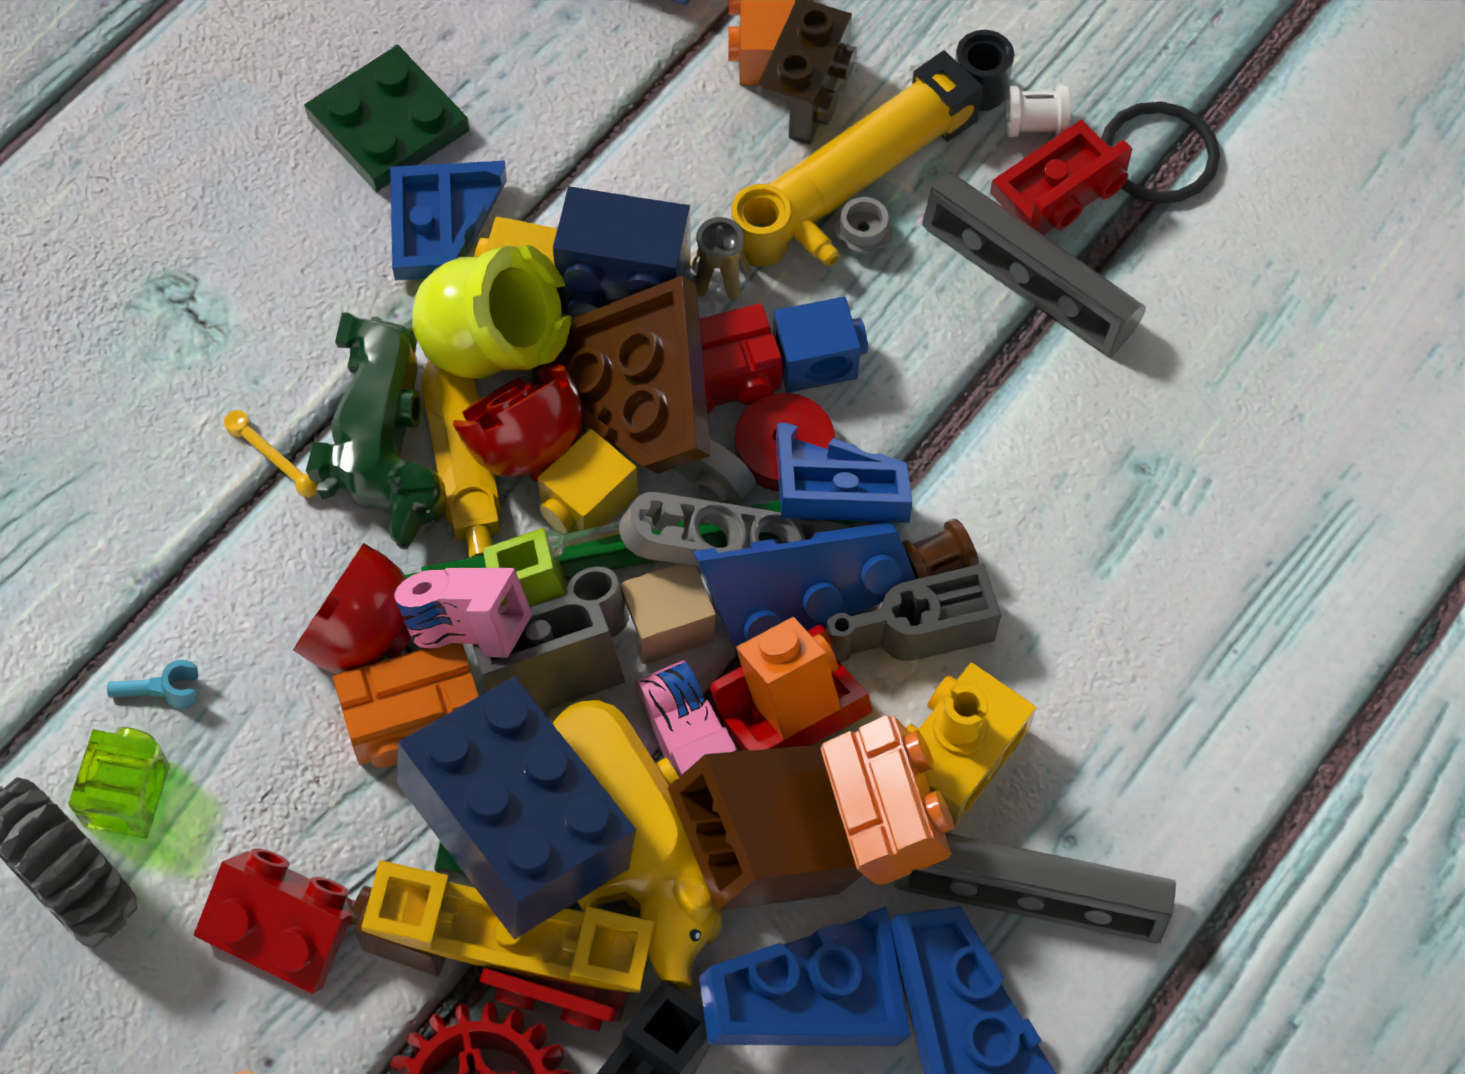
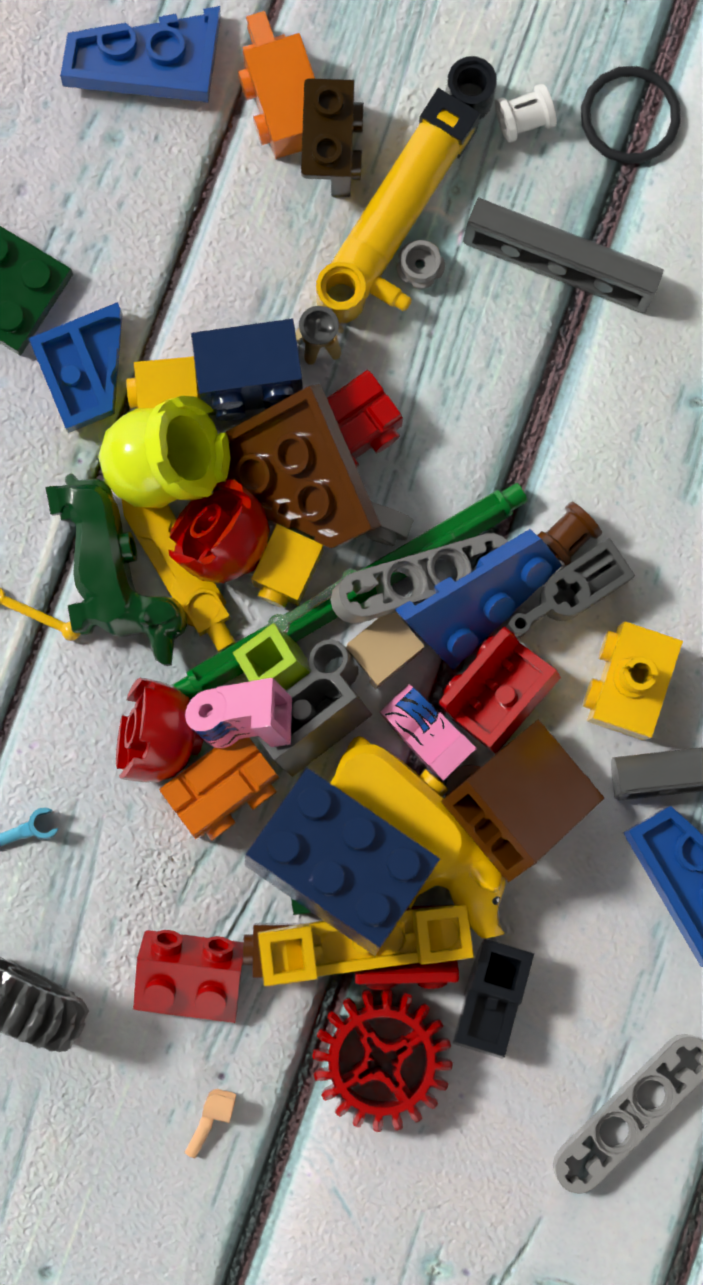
camera: 20 degrees left, 20 degrees up
(120, 782) = (33, 916): clear neon green brick -> none
(758, 431) = (423, 450): red piece -> none
(790, 676) = (498, 680): orange brick -> none
(811, 992) = (588, 906): blue wing -> none
(819, 343) = (421, 383): blue brick -> none
(839, 482) = (479, 505): blue wing -> none
(887, 800) = (602, 757): orange brick -> none
(1062, 178) = (562, 171): red bracket -> none

